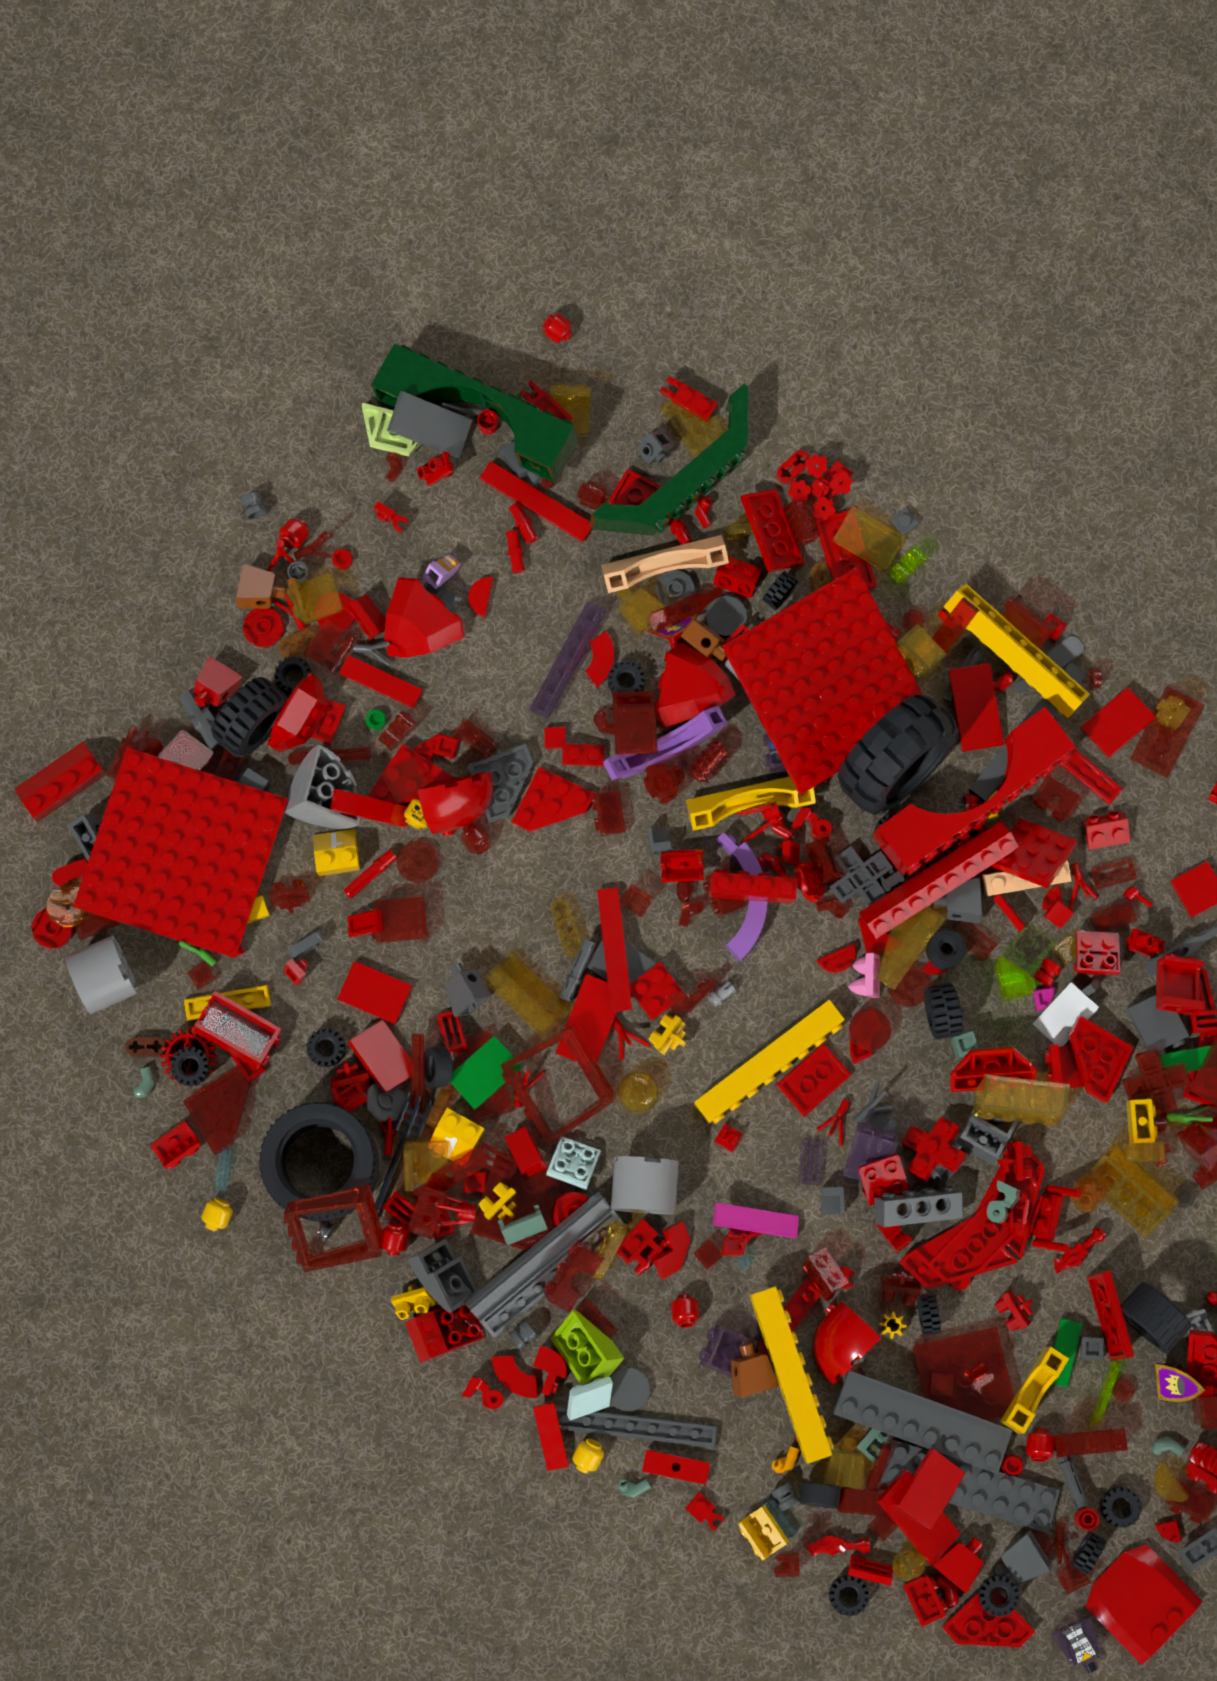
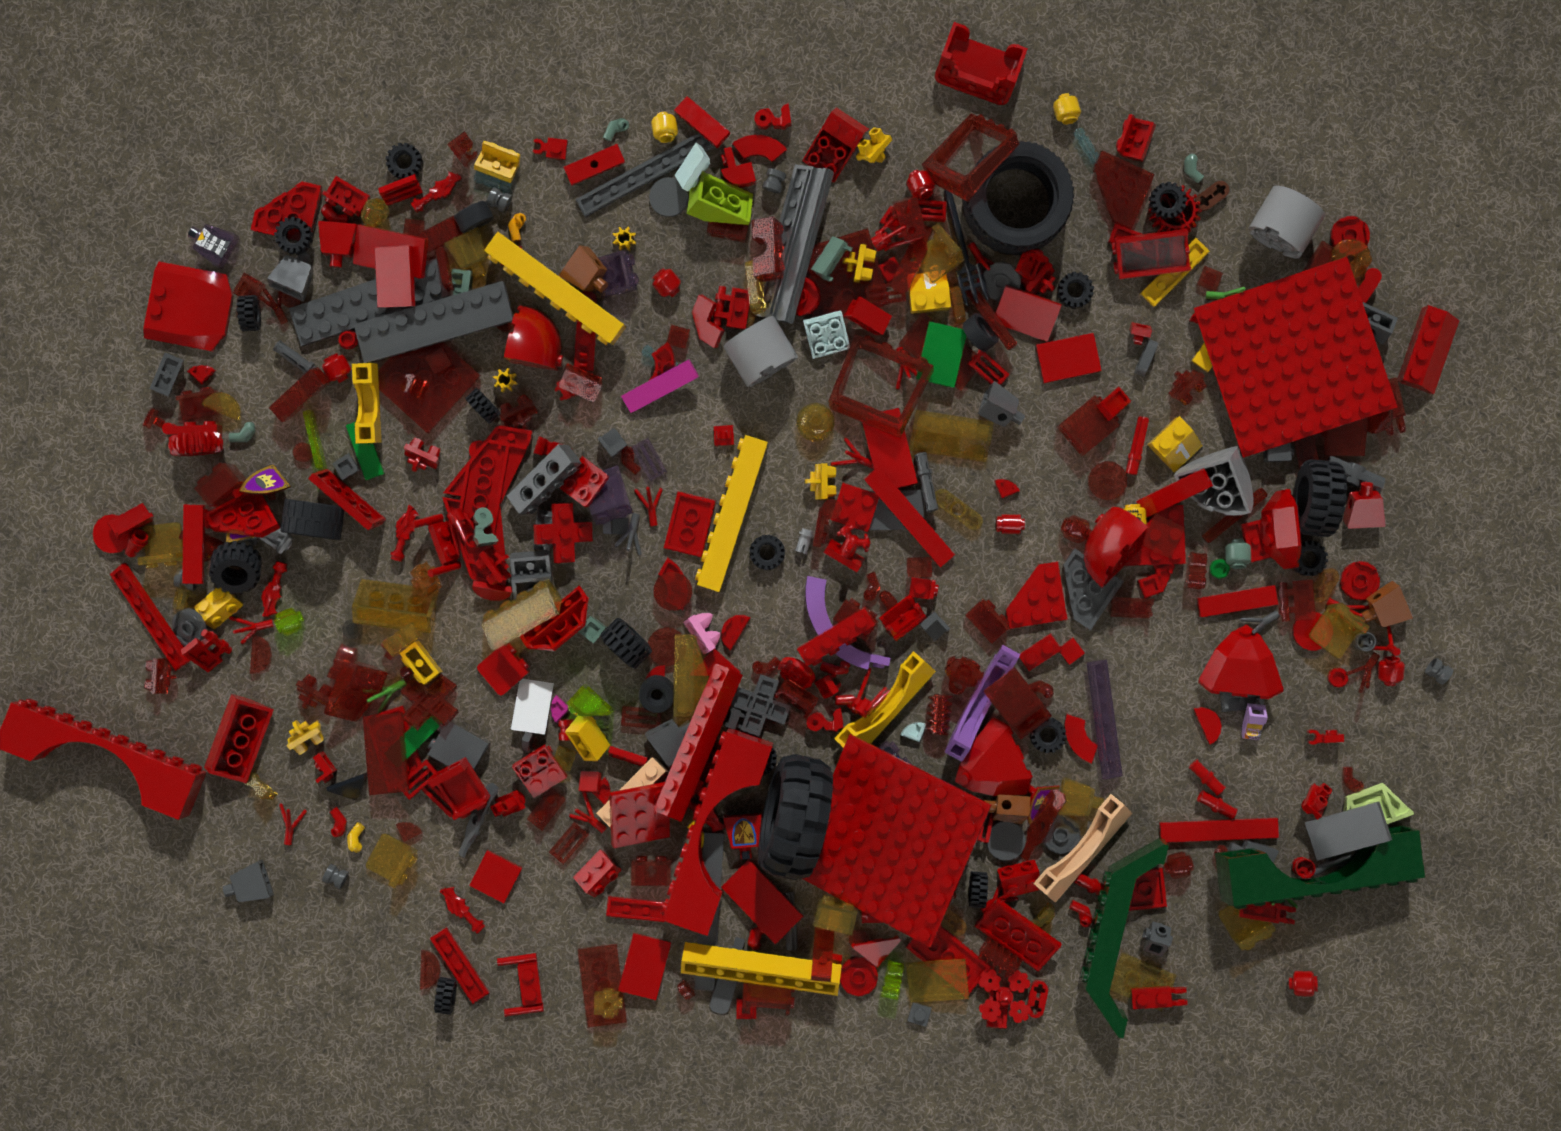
camera: 140 degrees right, 10 degrees up
(266, 1308) = (979, 67): none -> red windscreen
(324, 1231) = (976, 152): dark grey bush -> none
(351, 720) = (1238, 554): none -> sand green head
(367, 616) = (1285, 645): red panel -> none
(443, 1275) = (864, 181): dark grey slope -> none
(510, 917) = (1006, 487): none -> red tile
(530, 882) = (1010, 524): none -> red brick
(645, 879) = (923, 588): none -> red bracket
(692, 957) = (845, 552): none -> red piece
(694, 1385) = (622, 233): none -> yellow gear
(740, 763) = (914, 731): none -> light aqua tile
(760, 567) = (1005, 898): none -> red plant
(761, 993) = (755, 552): none -> black tyre
(830, 1174) = (627, 460): none -> clear red arm
(903, 599) = (876, 949): none -> tile
(934, 588) = (862, 972): none -> red tile
(951, 777) = (743, 832): none -> torso
(1032, 1139) = (491, 592): none -> red tile
(1035, 951) = (587, 738): none -> yellow brick
(1083, 1519) = (269, 340): red wheel -> none
(1099, 1057) = (485, 690): red plate -> none
(1131, 1497) = (236, 361): black tyre -> none
(1132, 893) = (543, 838): red hand -> none

